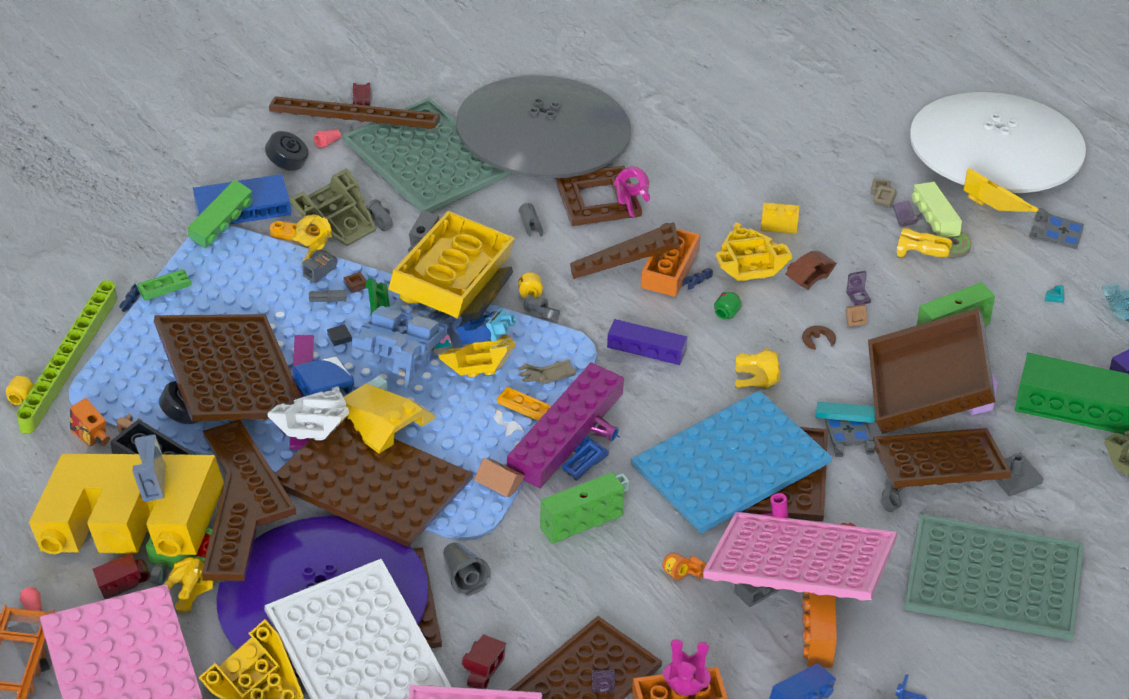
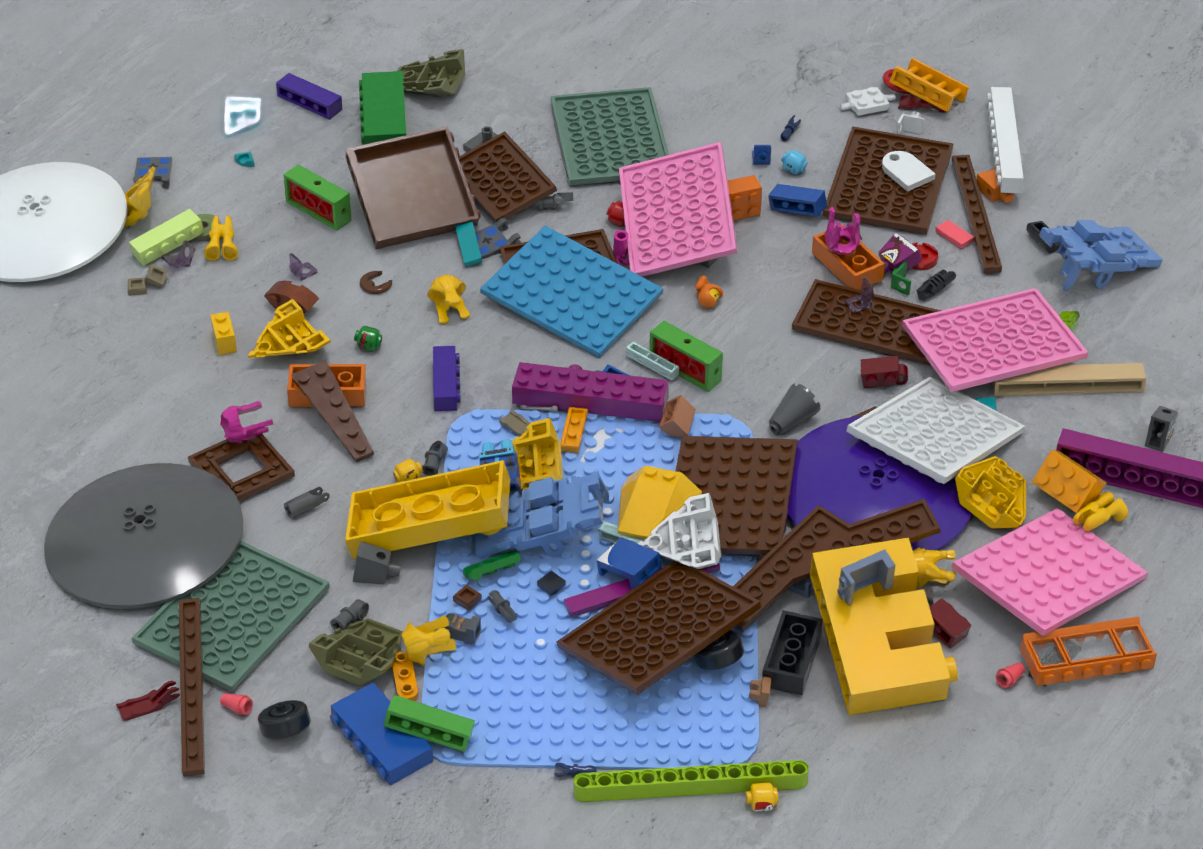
camera: 110 degrees left, 0 degrees up
(88, 423) = (782, 710): orange torso -> none
(164, 284) = (552, 739): bright green hinge -> none
(856, 315) = (337, 262): medium nougat tile -> none

